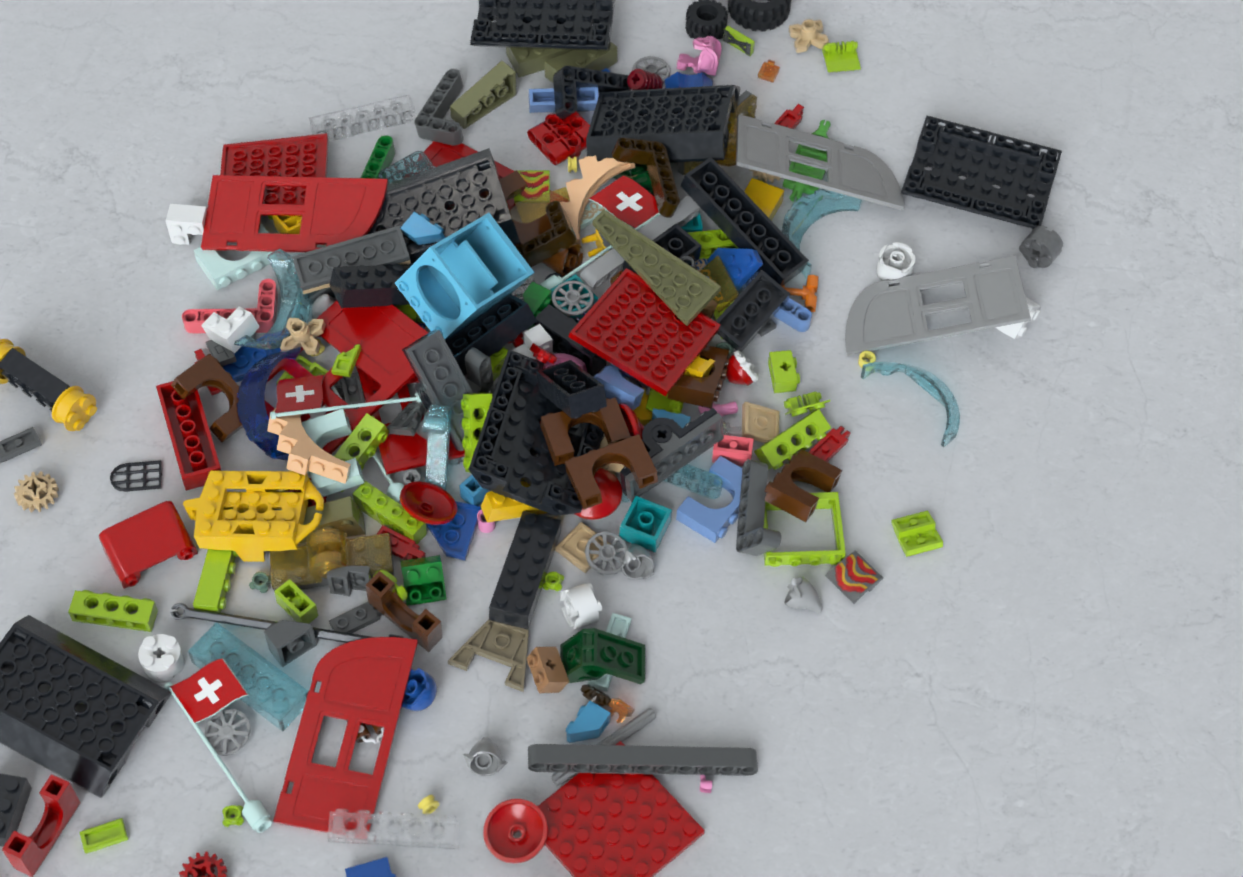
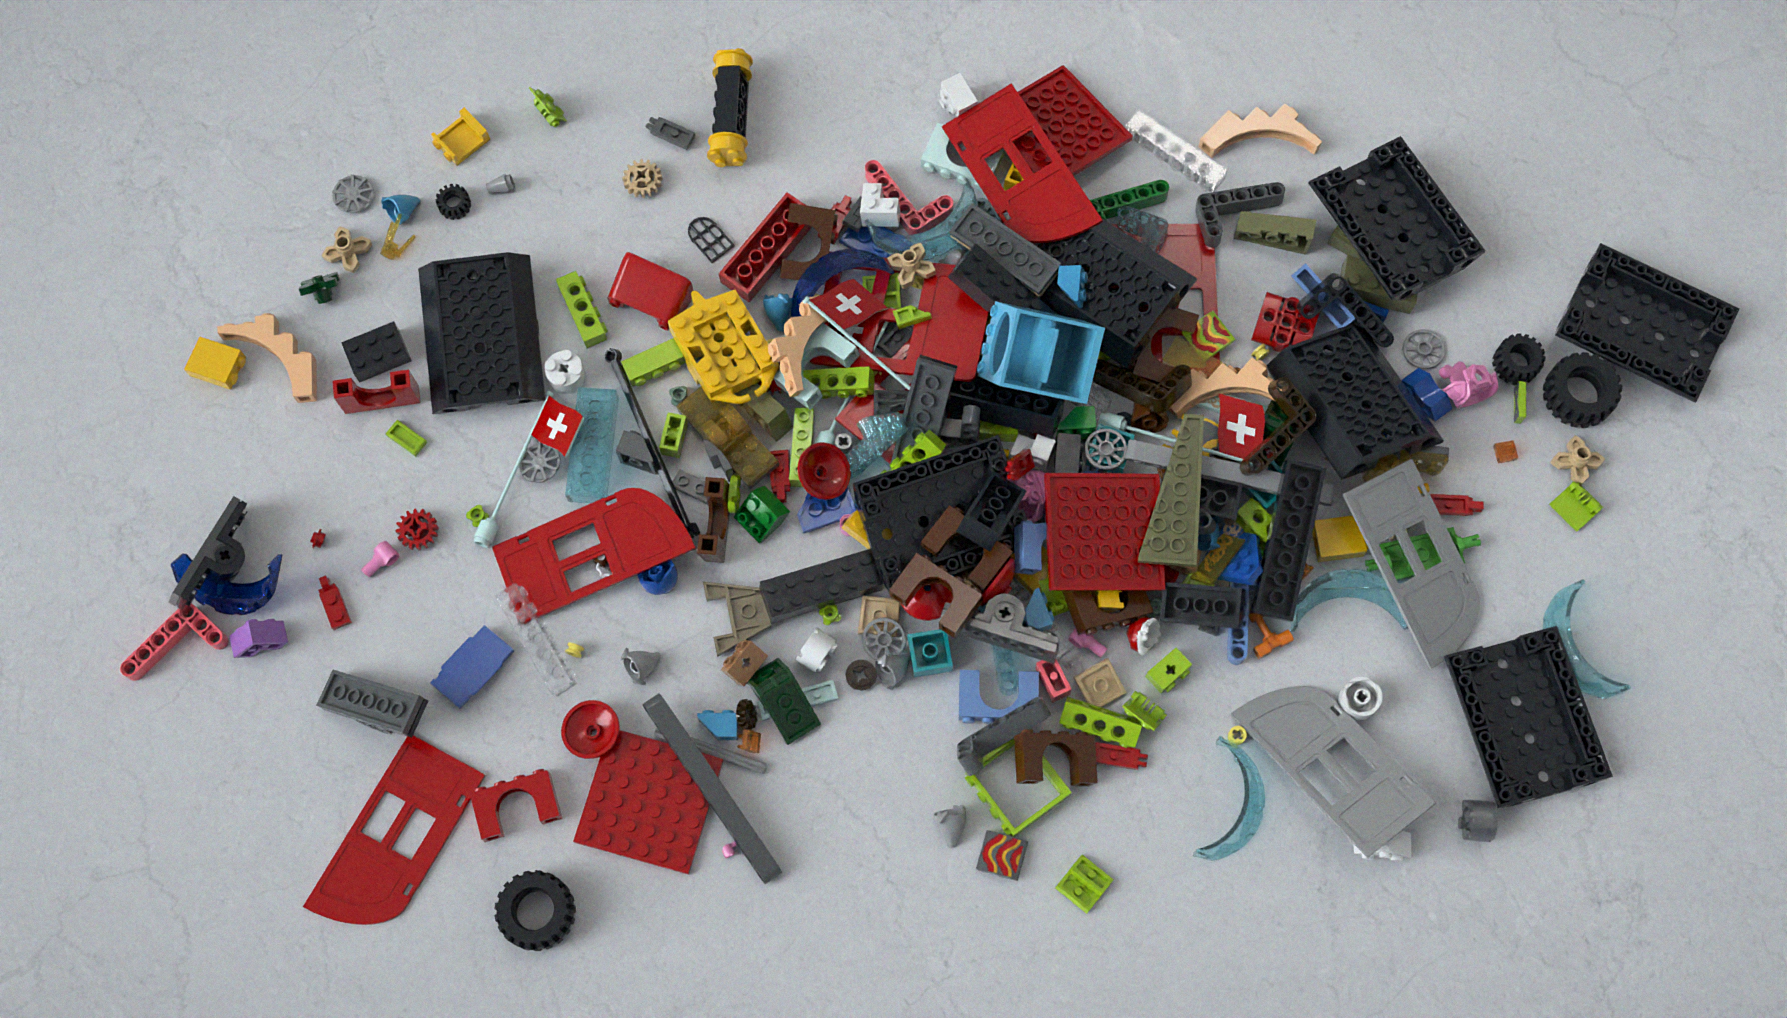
camera: 60 degrees right, 15 degrees up
(250, 458) = (777, 309): none -> dark azure hat
(389, 57) = (1258, 124): none -> light nougat arch
(627, 582) = (858, 666): none -> dark brown gear
(644, 80) = (1397, 353): dark red piece -> none
(915, 113) = (1588, 678): none -> clear light blue windscreen

